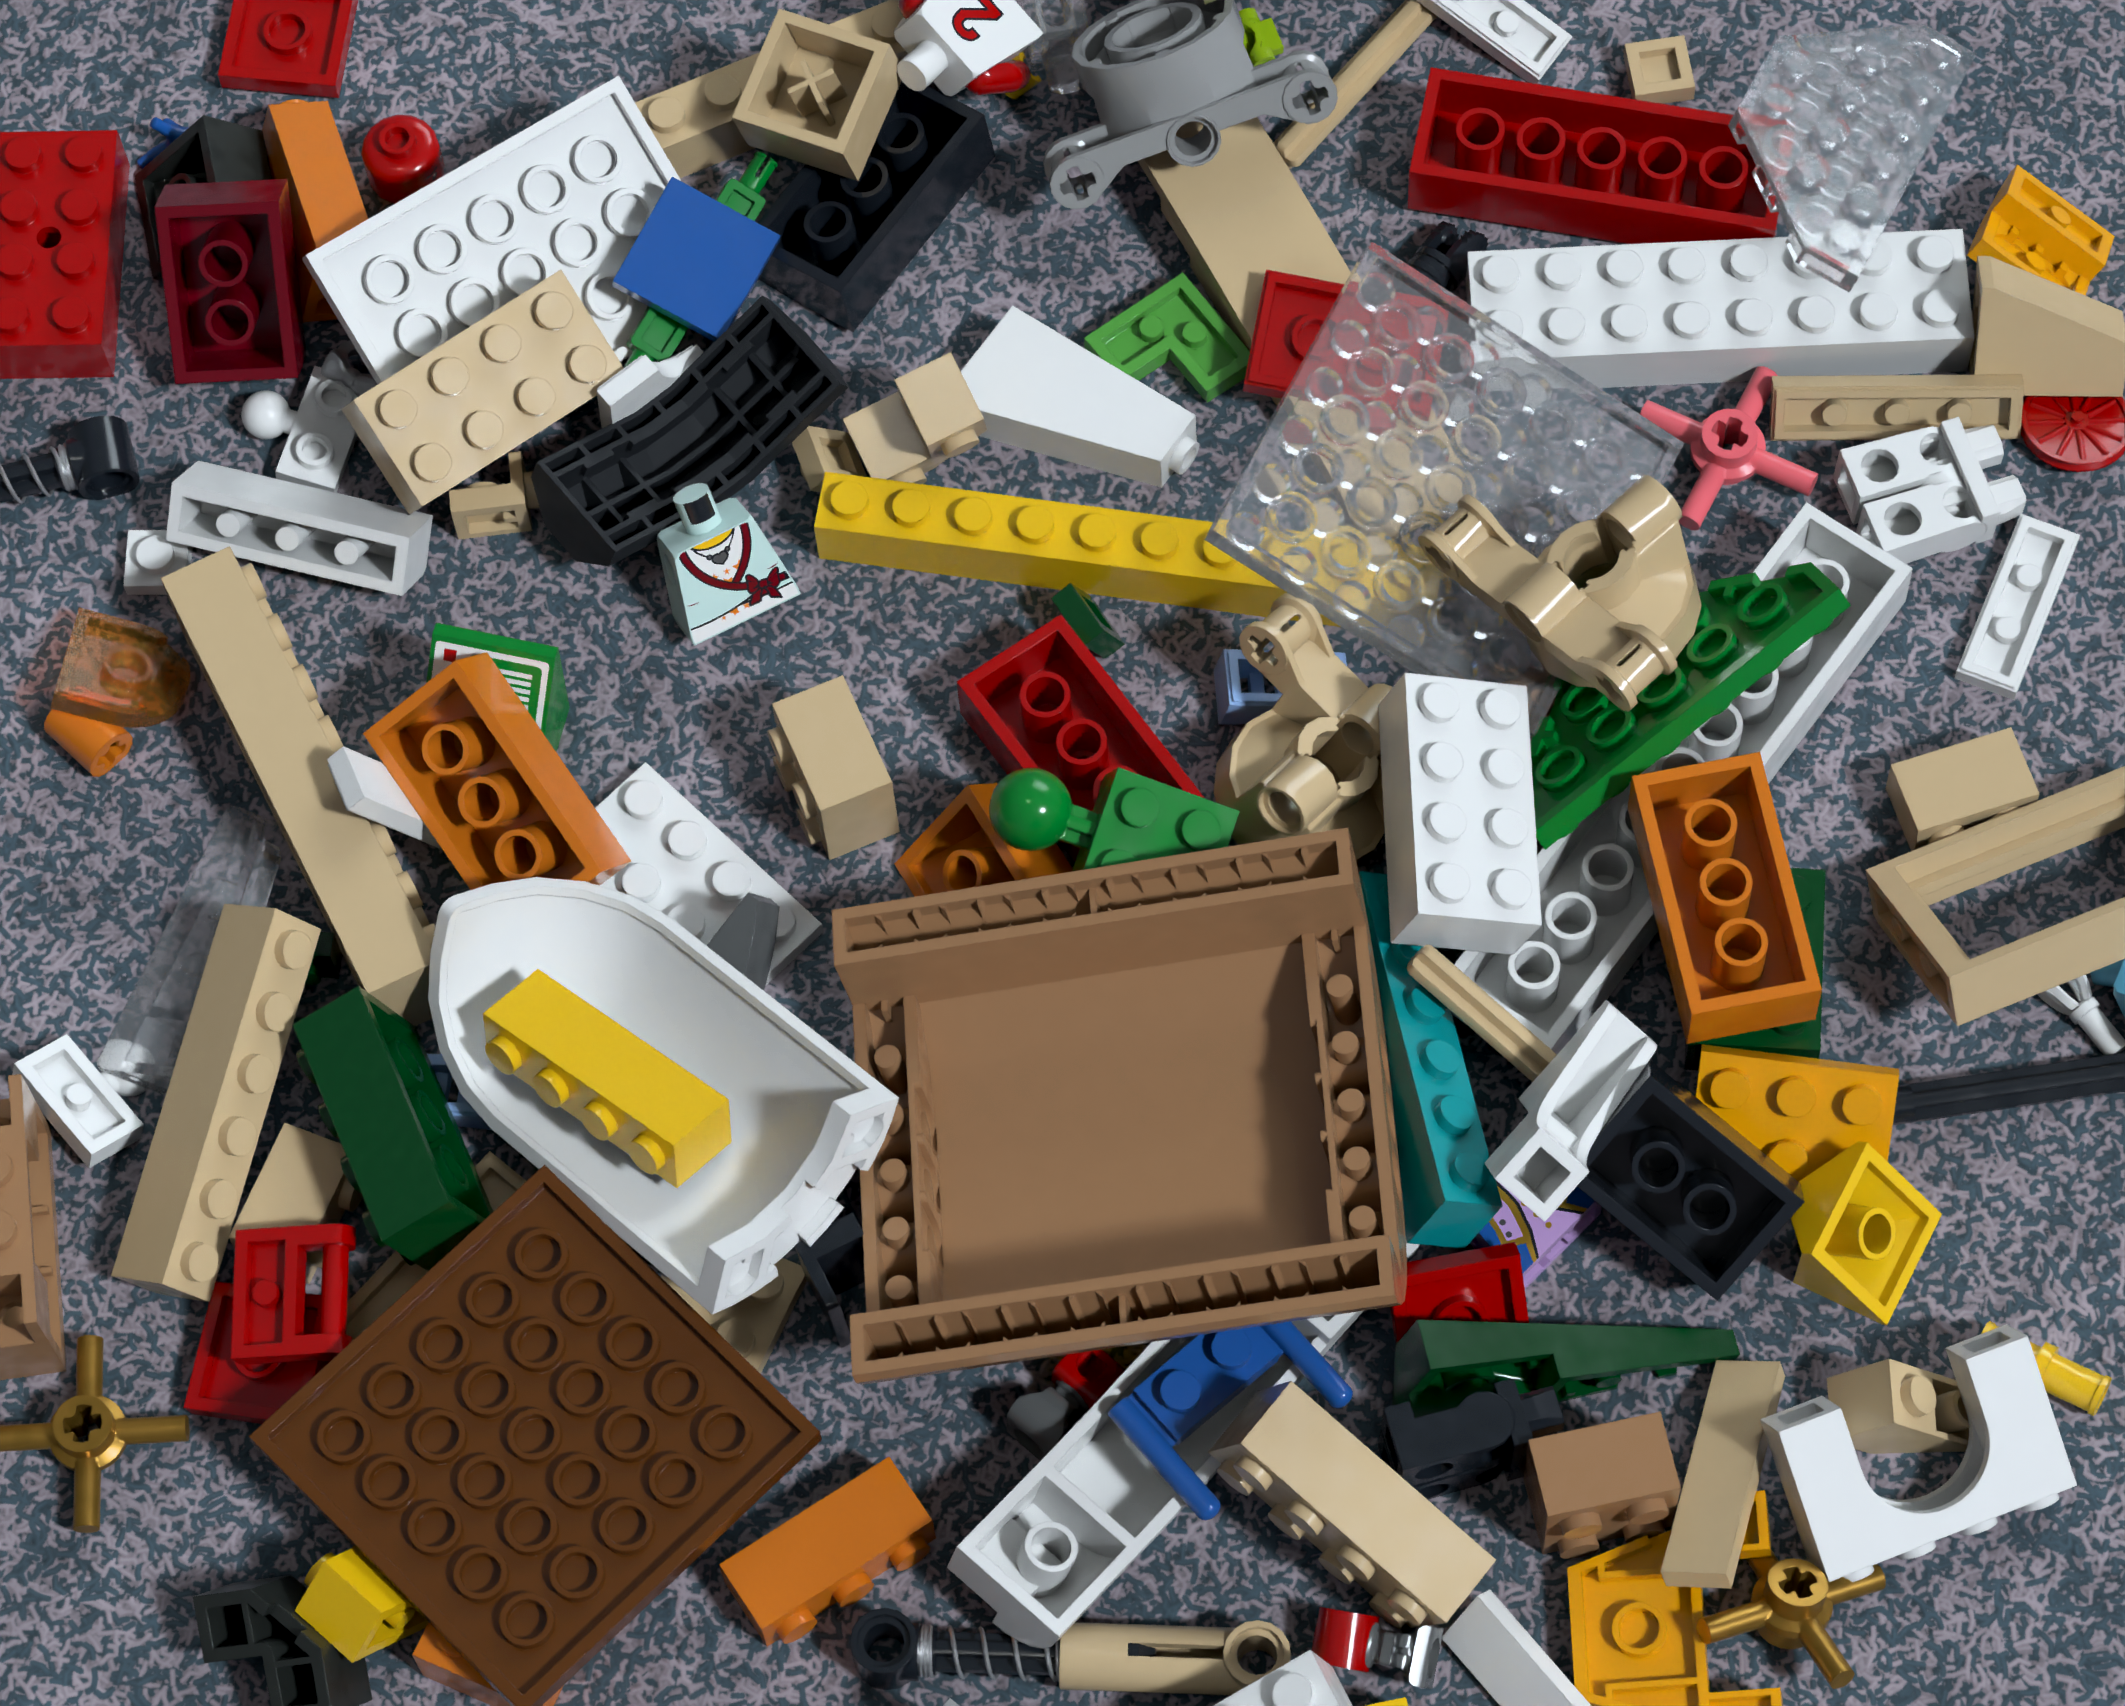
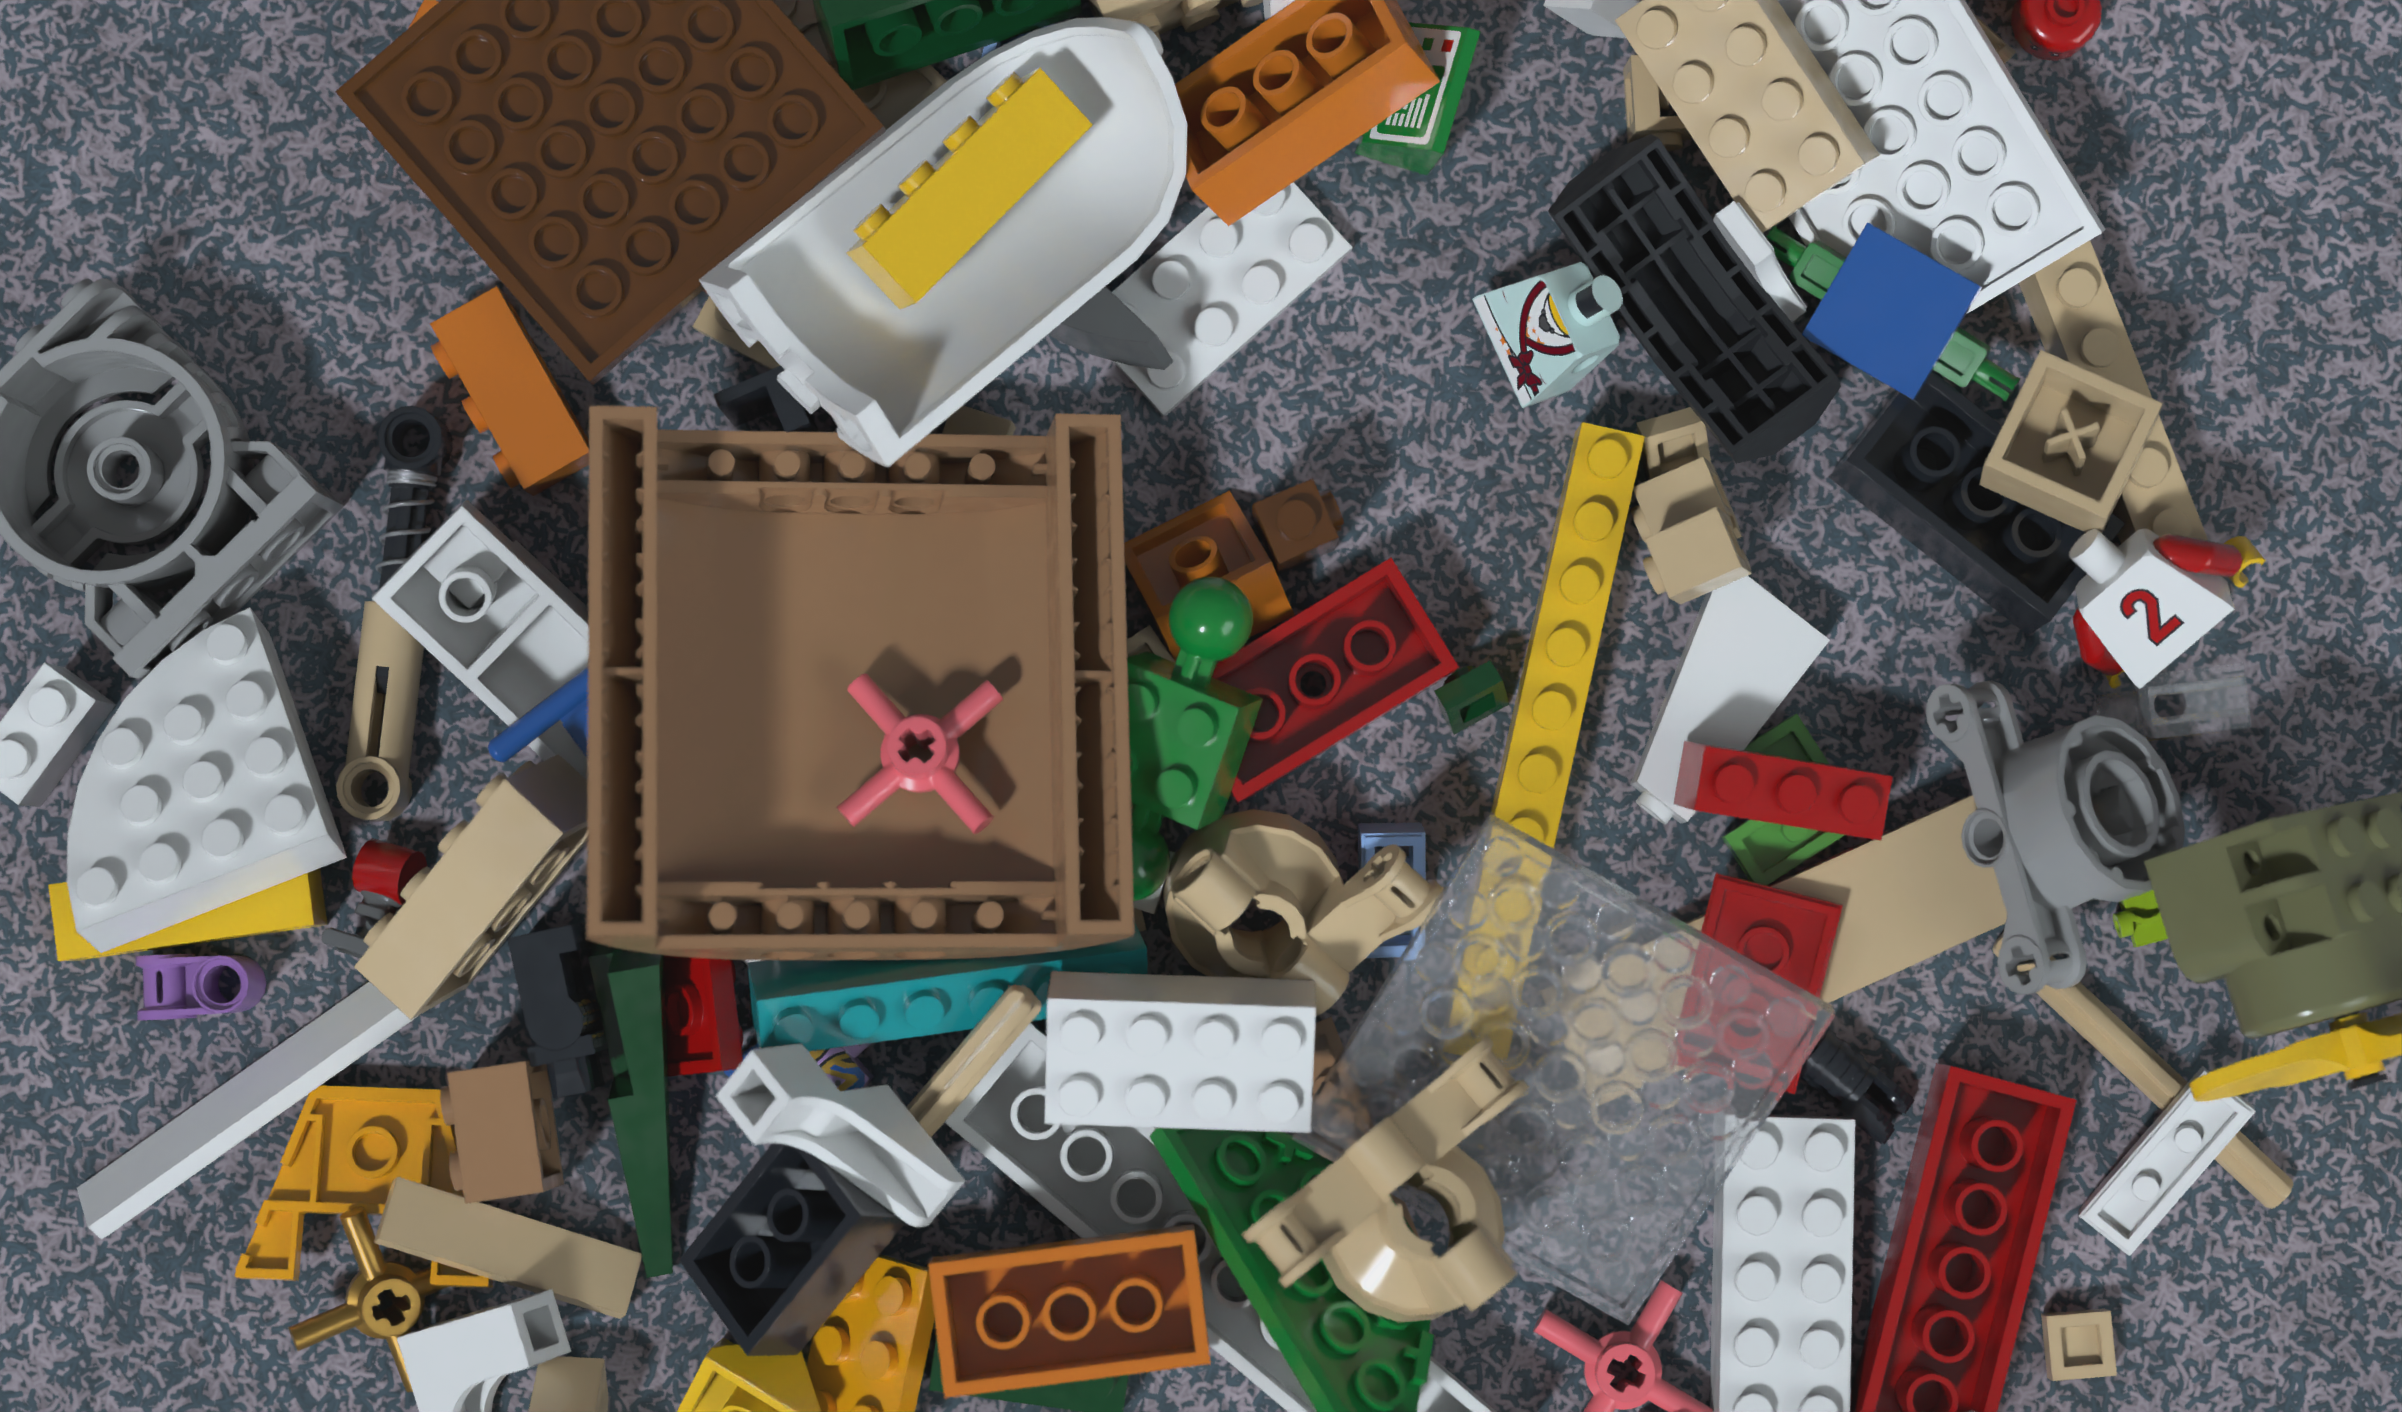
camera: 90 degrees right, 20 degrees up
(832, 769) = (1313, 429): tan brick -> none
(926, 770) = (1297, 525): none -> reddish brown brick
(1160, 326) = (1782, 790): none -> red brick
(1195, 1098) = (913, 774): none -> coral bar

